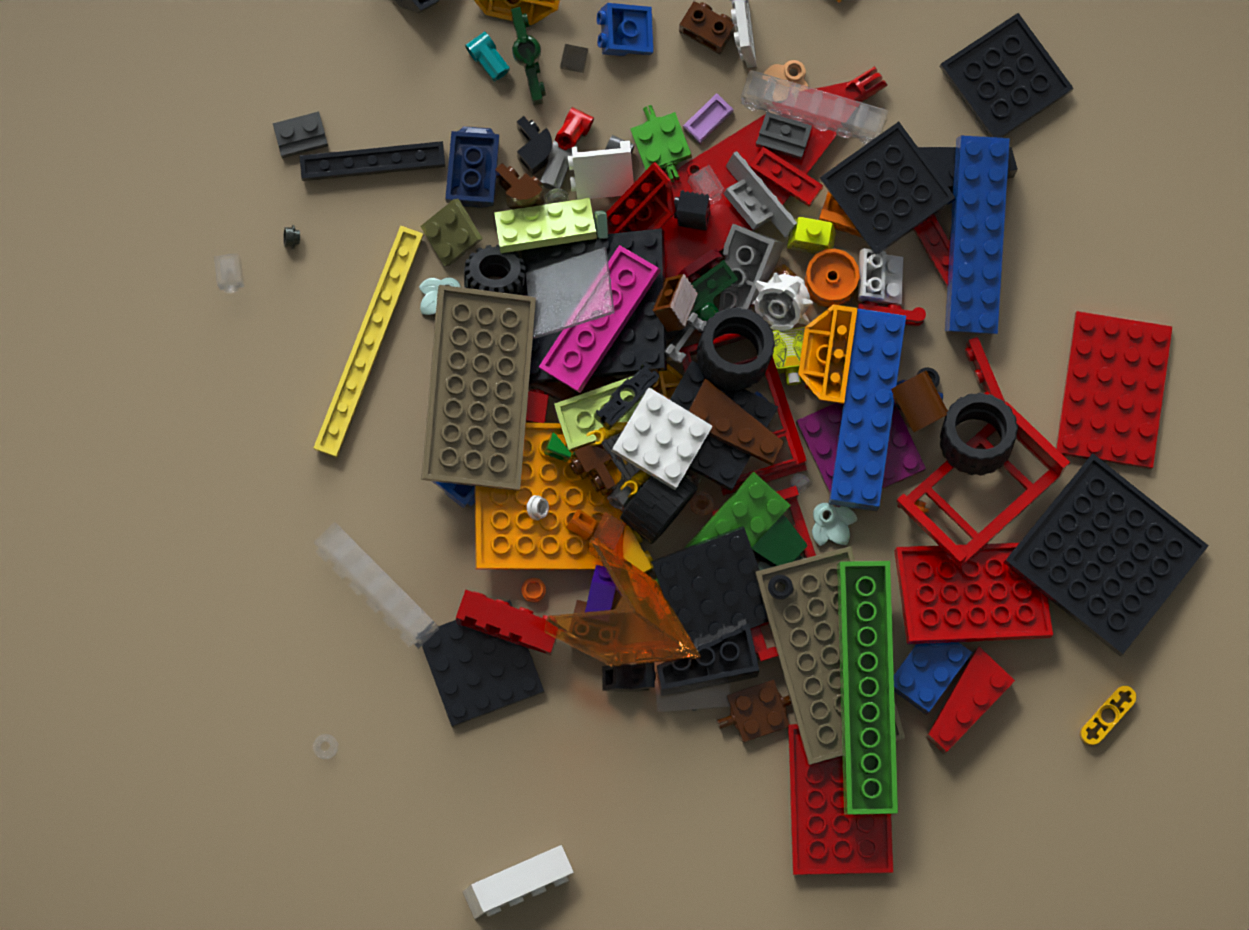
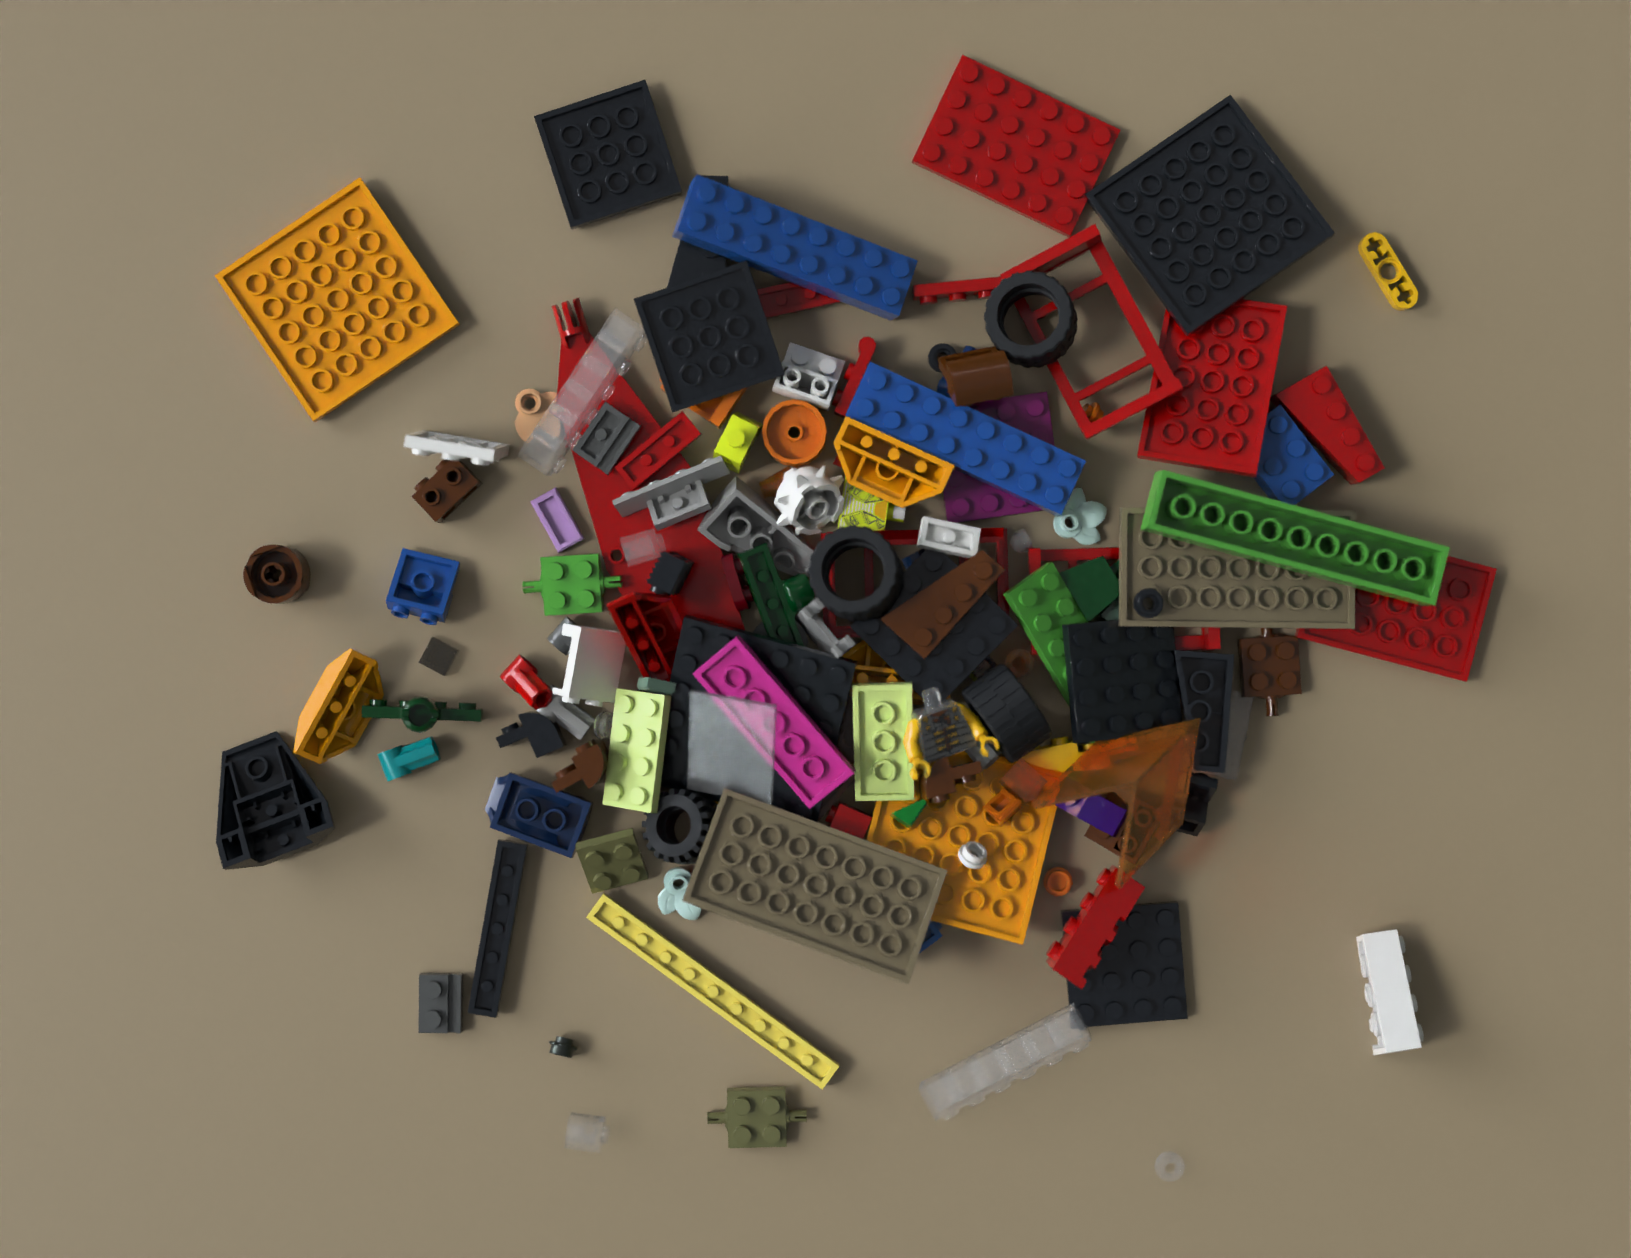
camera: 80 degrees left, 10 degrees up
(276, 404) = (757, 1117): none -> olive plate
(616, 406) = (891, 734): black piece -> none
(661, 438) = (943, 692): white plate -> none
(675, 302) = (779, 627): reddish brown brick -> none
(785, 416) = (948, 537): none -> white plate

